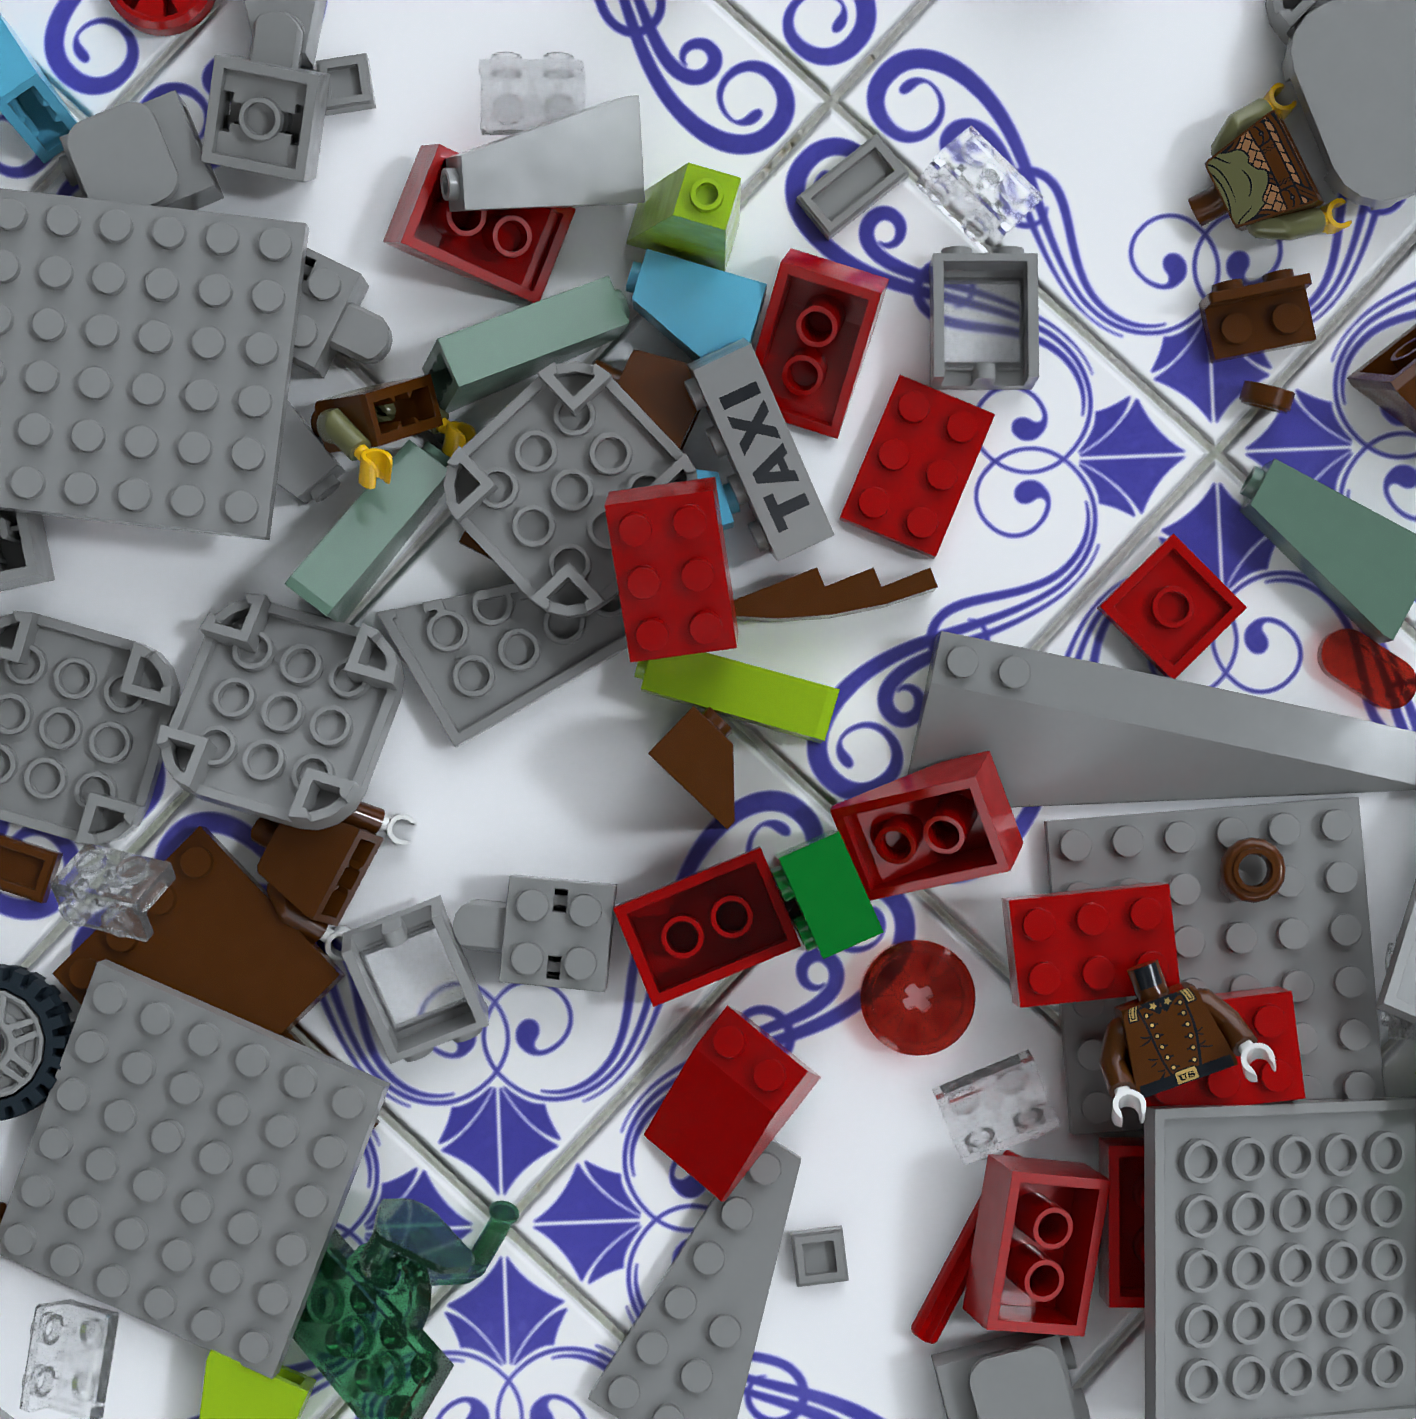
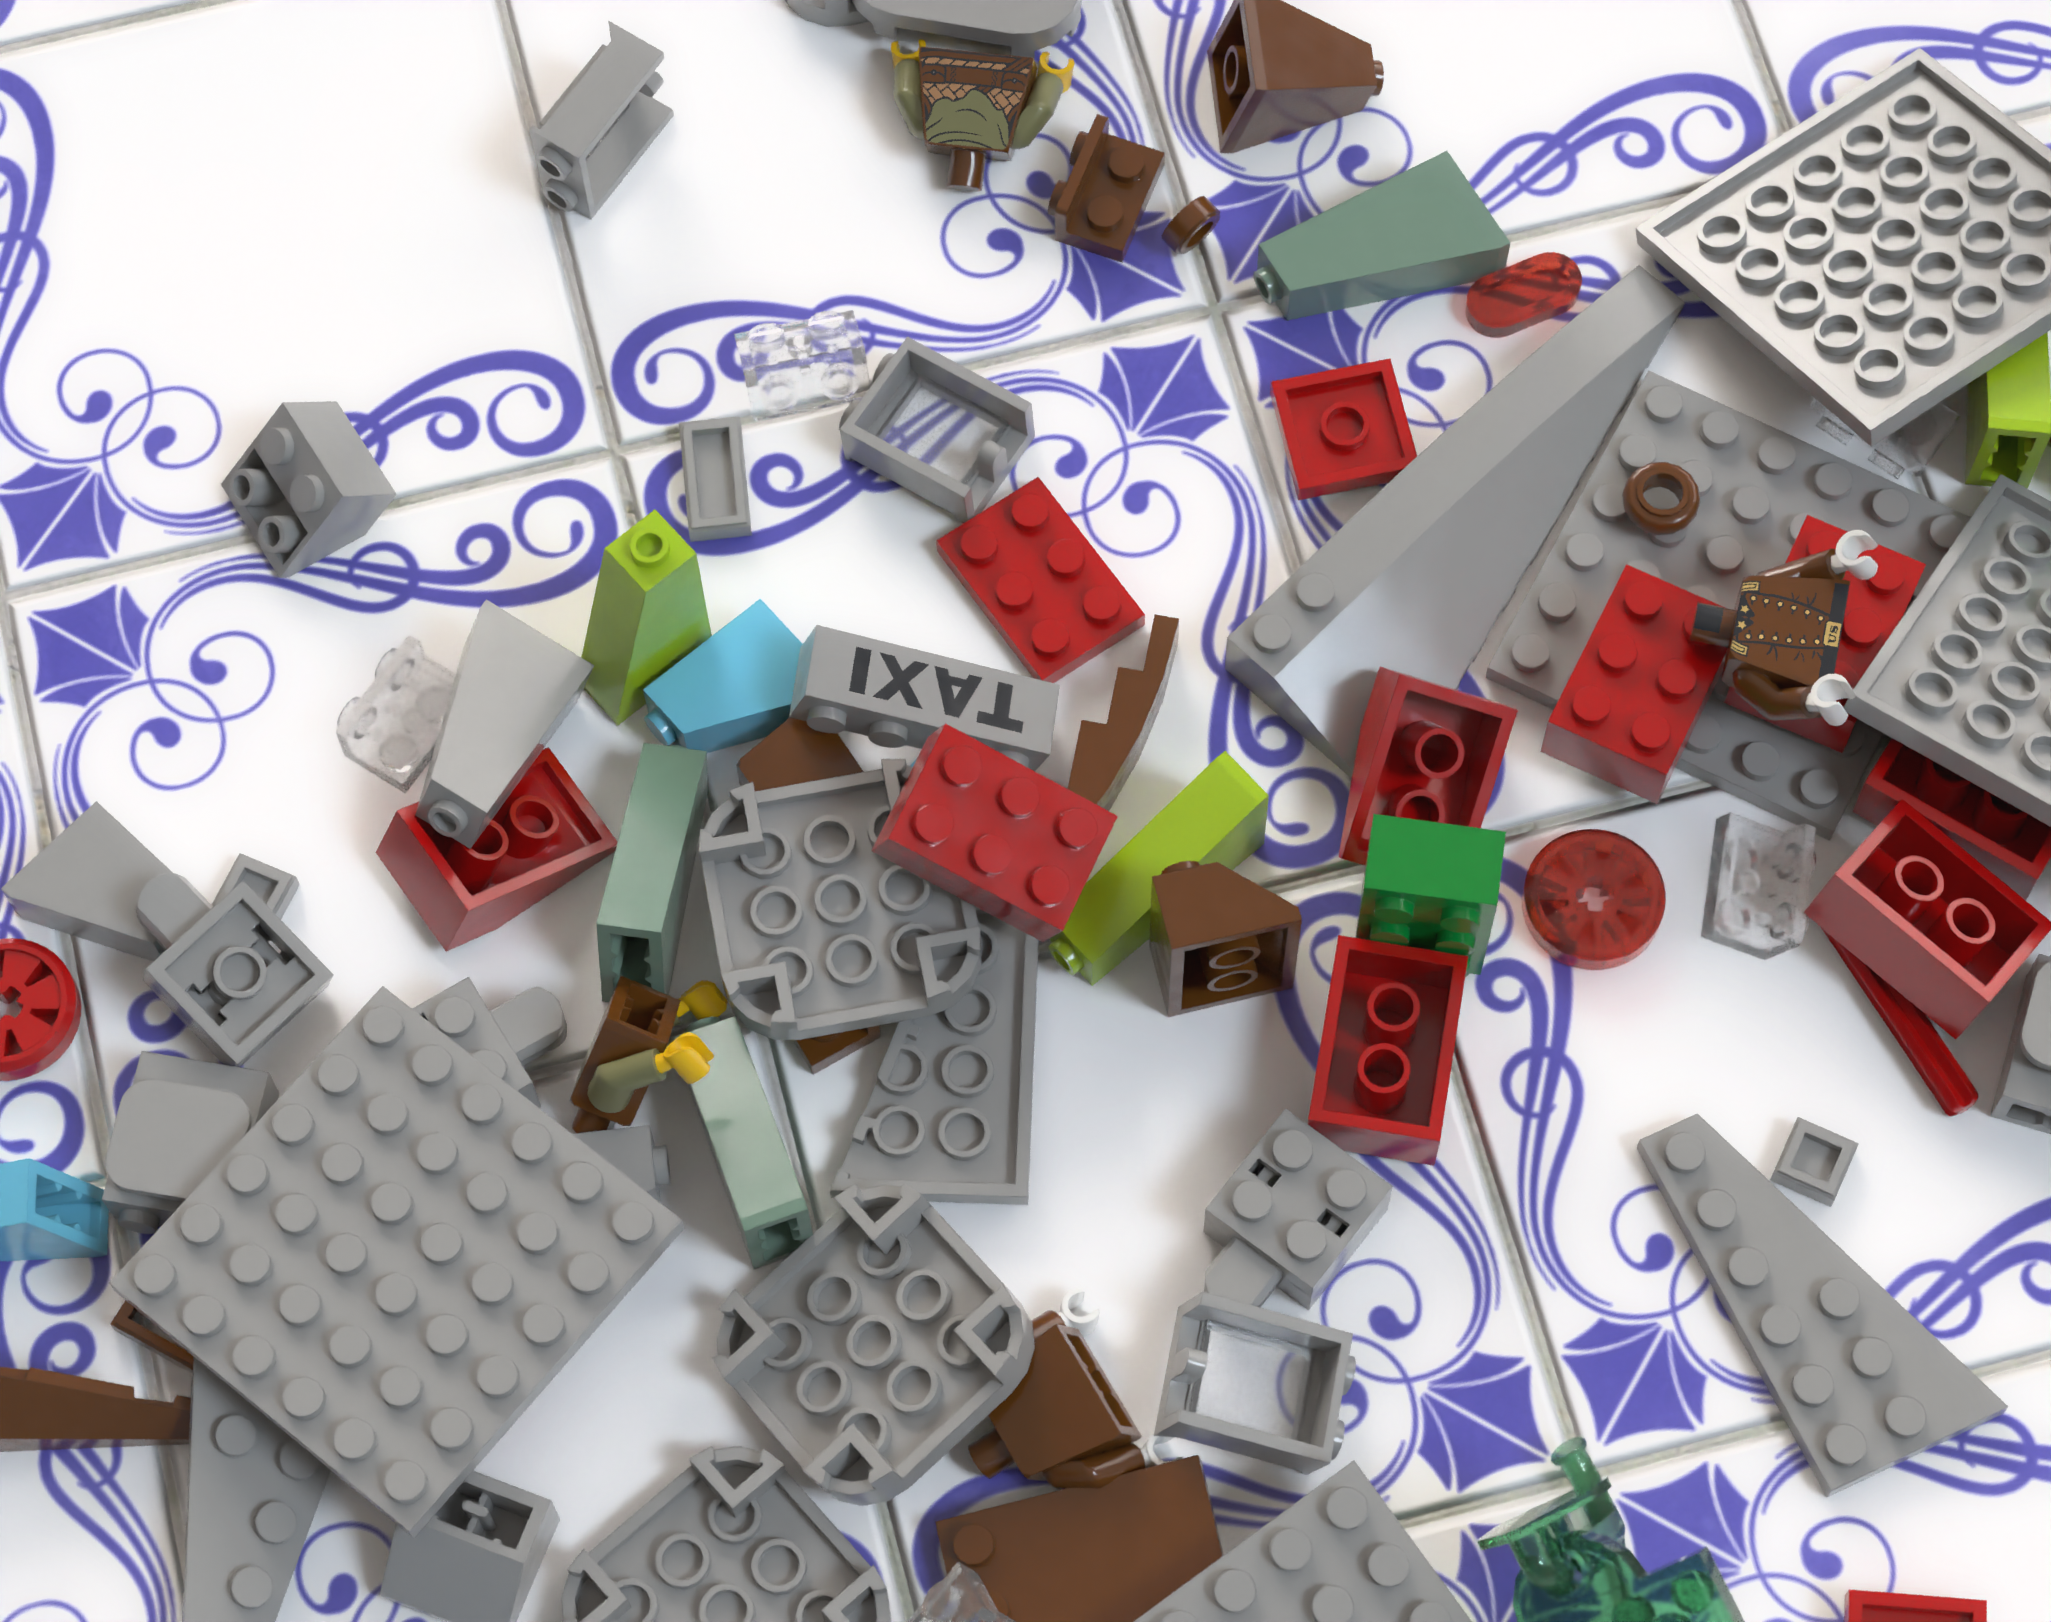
camera: 60 degrees left, 20 degrees down
(729, 1102) = (1590, 1141): red slope -> none
(818, 338) = (846, 576): red slope -> none

